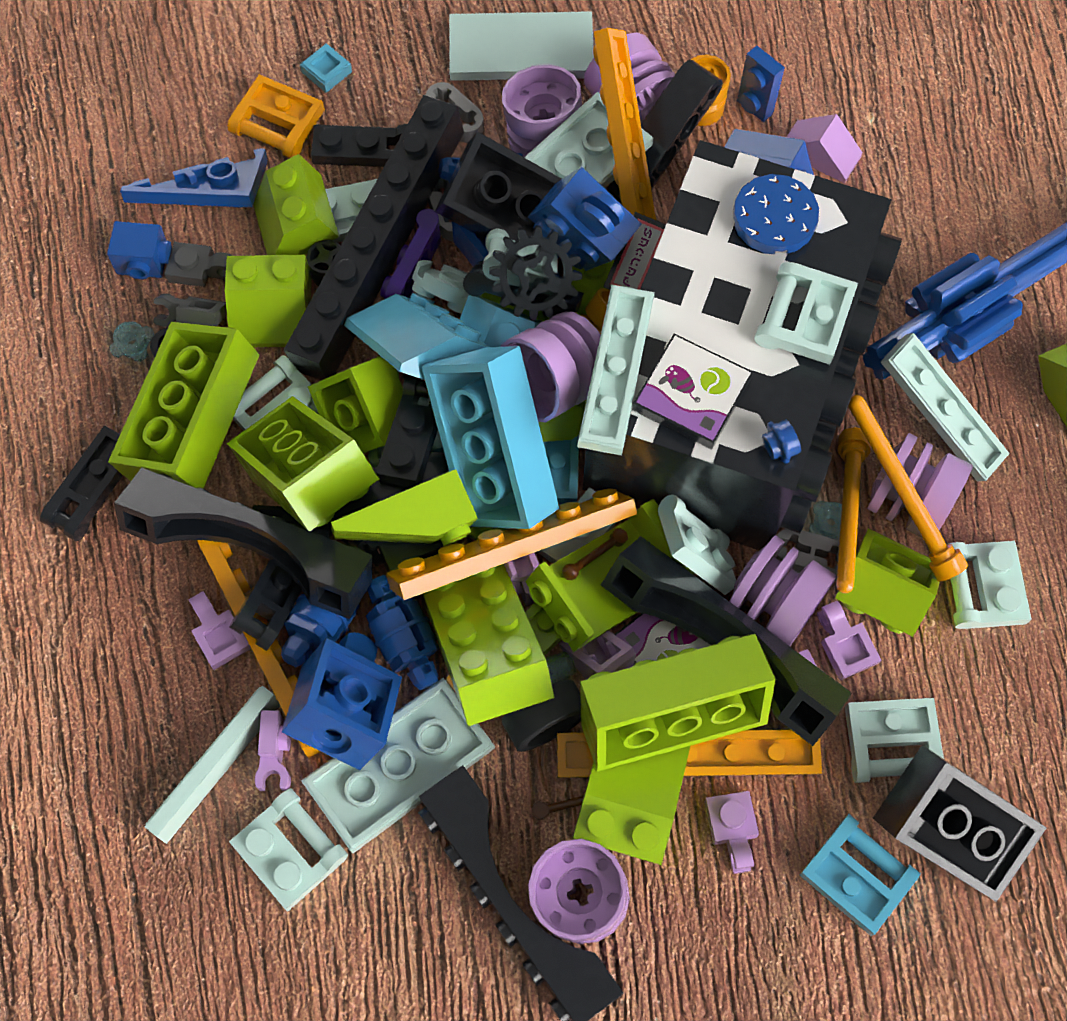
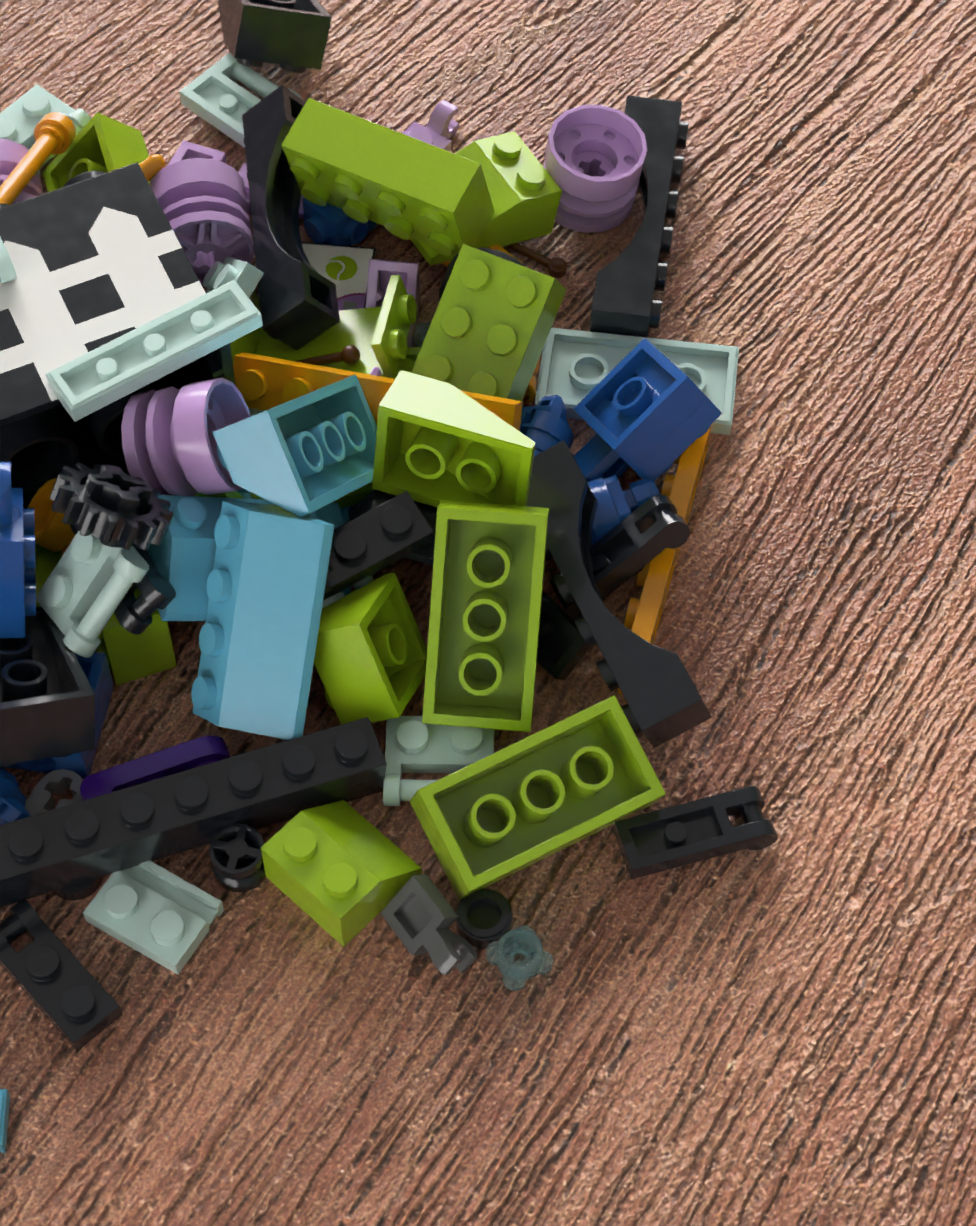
camera: 135 degrees left, 10 degrees down
(138, 250) = (417, 1049): blue brick -> none
(194, 264) = (371, 992): dark grey plate -> none
(204, 184) = (253, 1062): blue wing -> none
(211, 766) = (795, 487): light aqua tile -> none
(214, 636) = (696, 587): lavender plate -> none
(270, 749) = (731, 464): lavender plate -> none
(277, 860) = (804, 391): light aqua plate -> none
(280, 106) = (83, 1103): light orange plate -> none
(293, 208) = (221, 929): lime slope -> none
(444, 284) = (154, 702): light aqua plate -> none
(692, 391) = (118, 280): tile -> none
(781, 441) = (104, 185): blue plate -> none
(851, 885) = (387, 51): medium azure plate -> none

